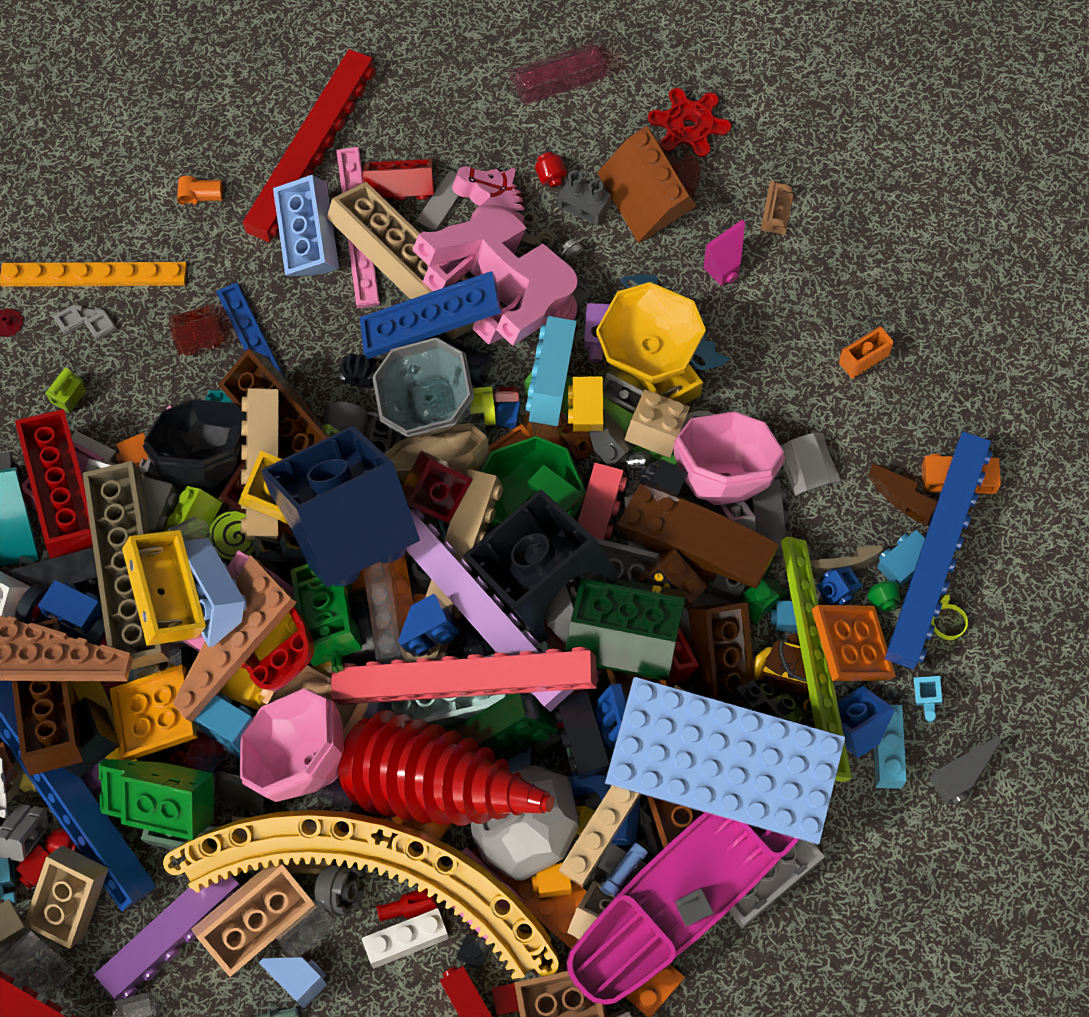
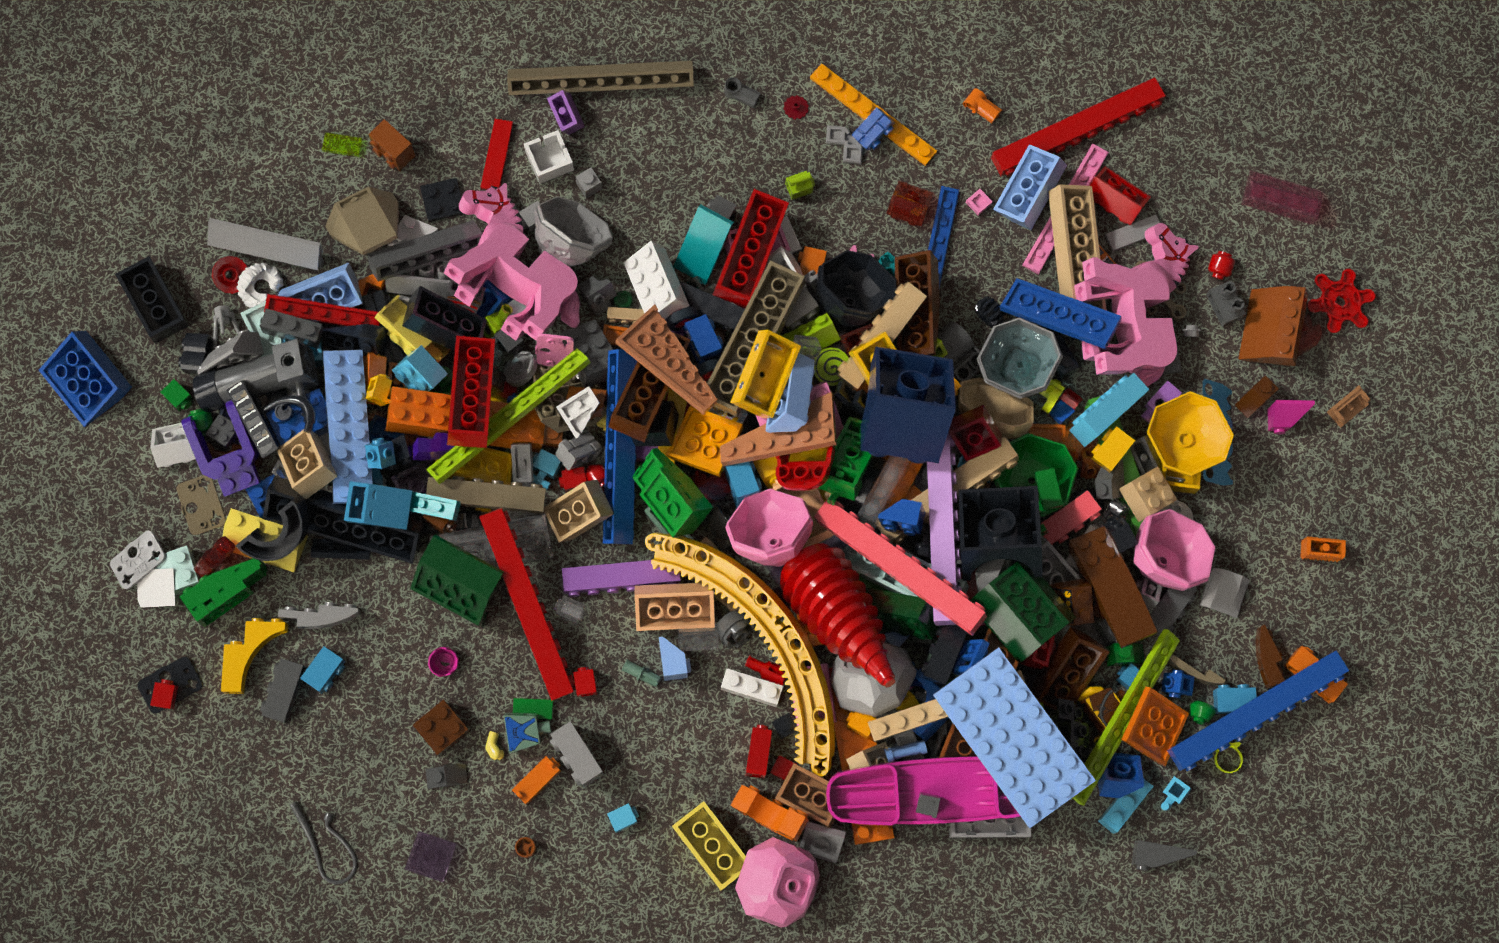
camera: 30 degrees right, 10 degrees up
(103, 284) = (873, 129): none -> brick
(265, 279) = (978, 202): none -> bright pink plate
(684, 261) = (1256, 396): none -> reddish brown slope

